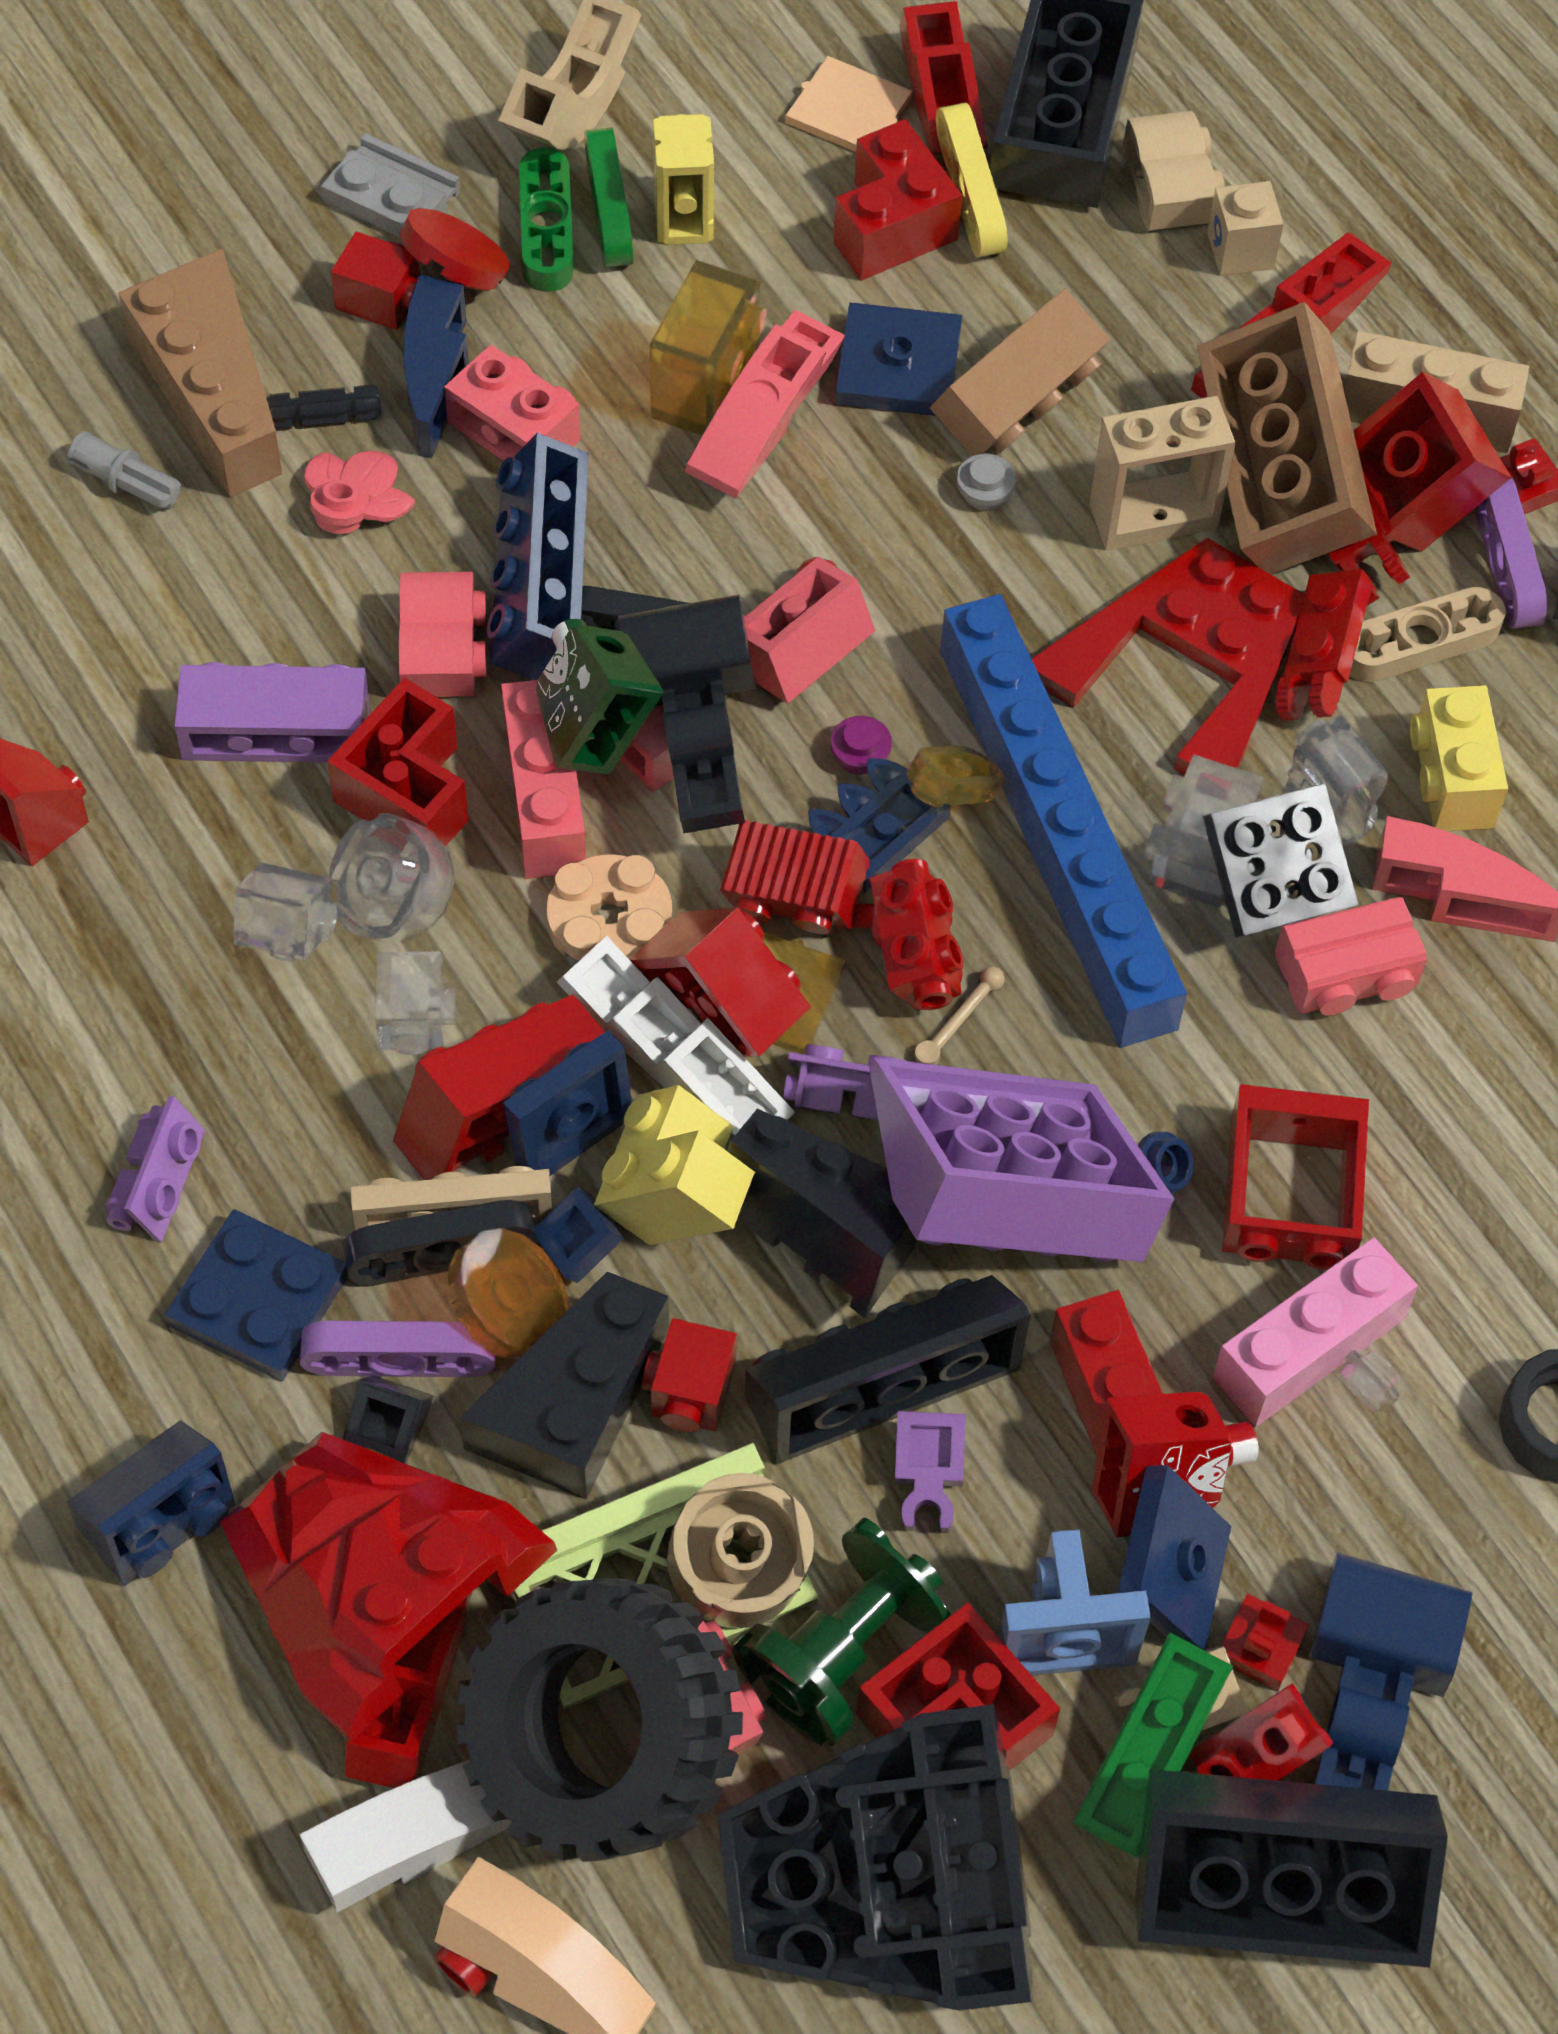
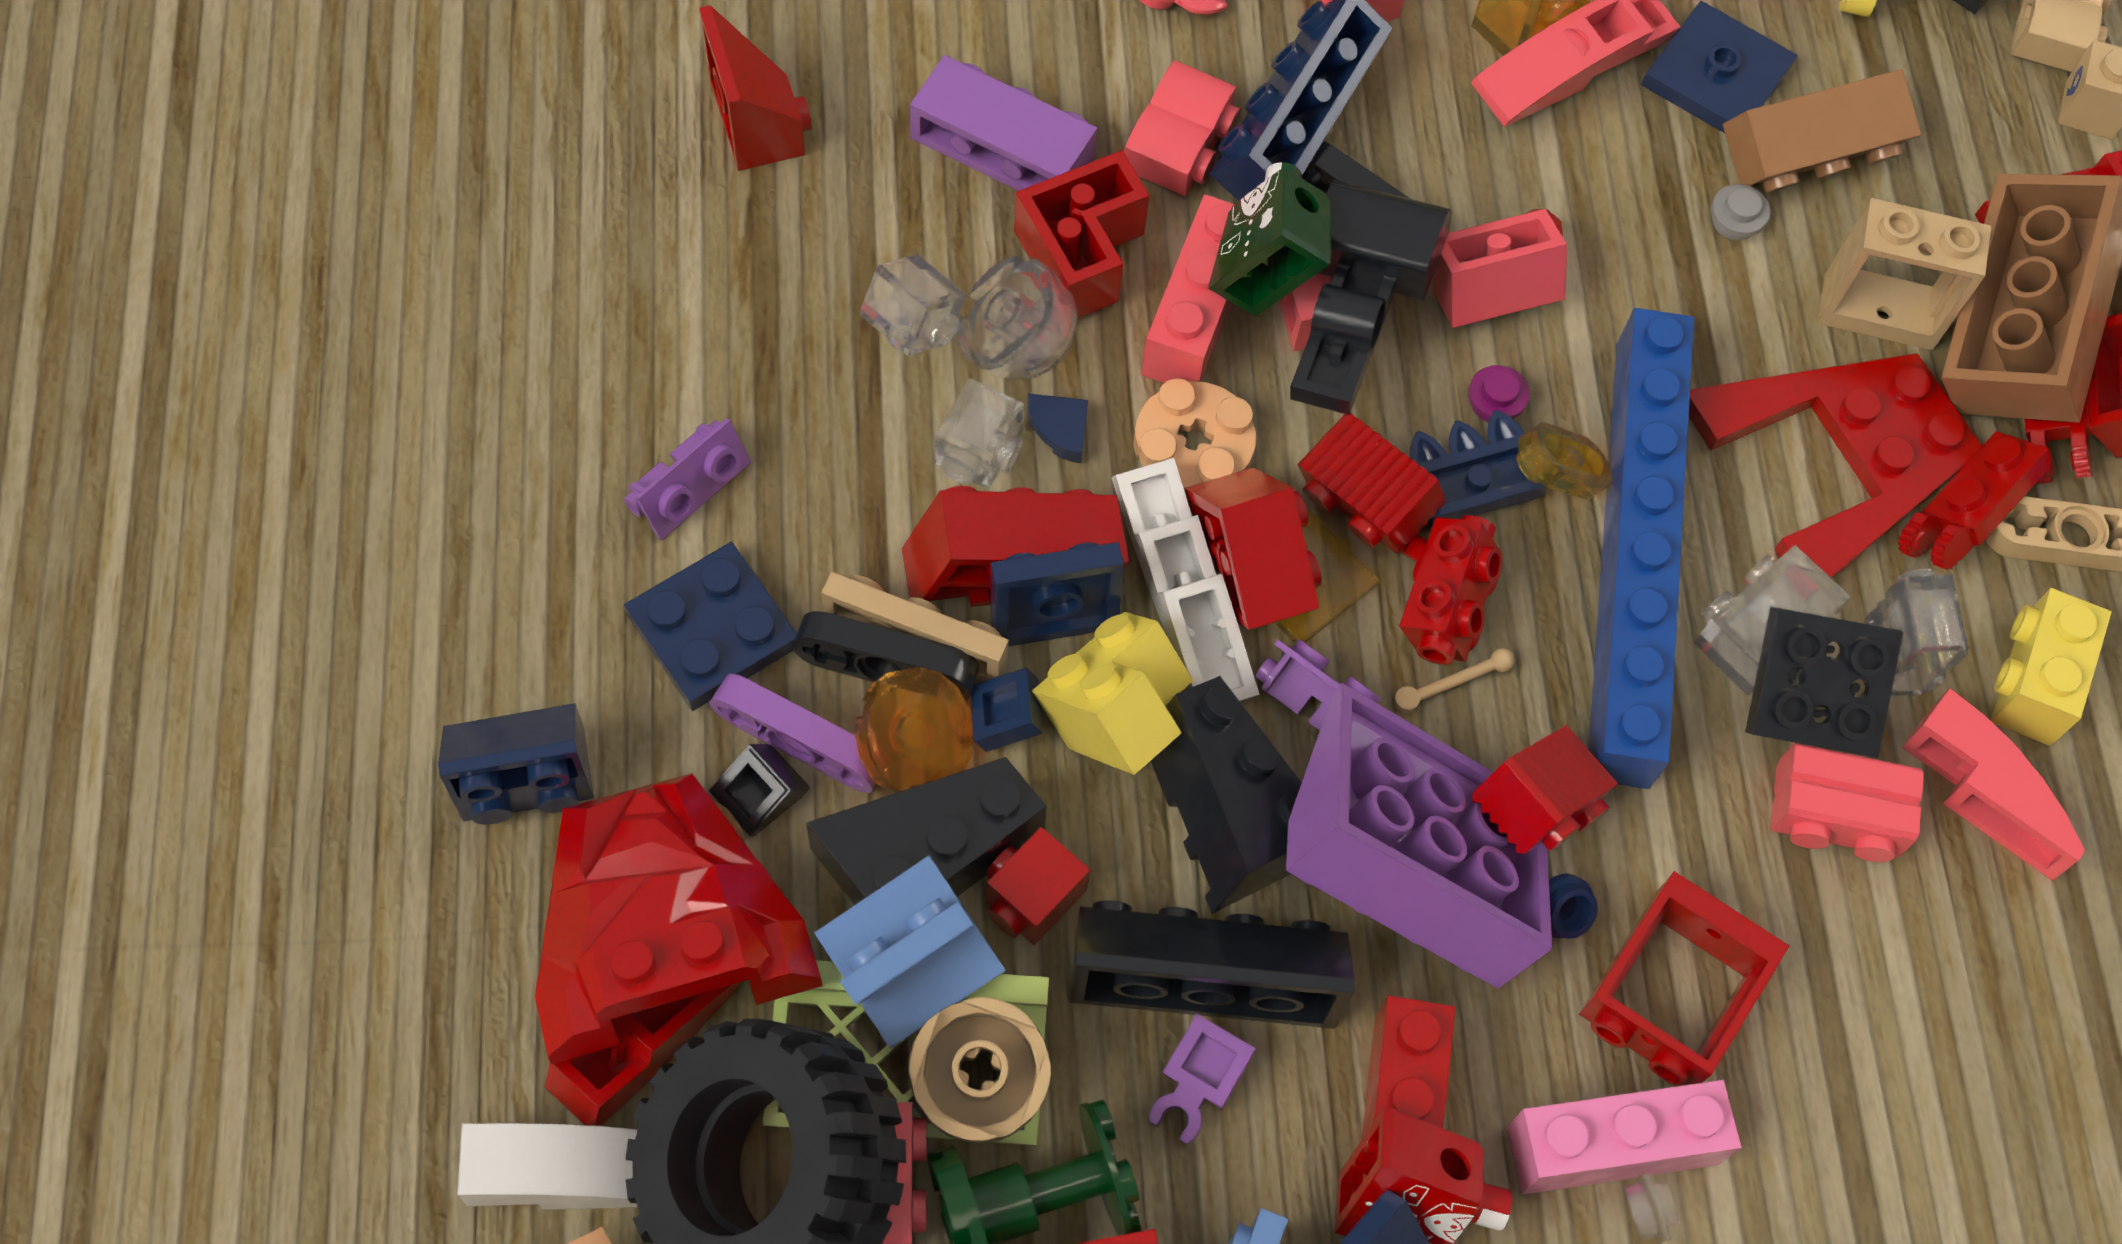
camera: 25 degrees right, 5 degrees up
(478, 958) = (1059, 423): none -> dark blue tile
(620, 1478) = (909, 951): none -> medium blue bracket
(1096, 1070) = (1546, 792): none -> red brick

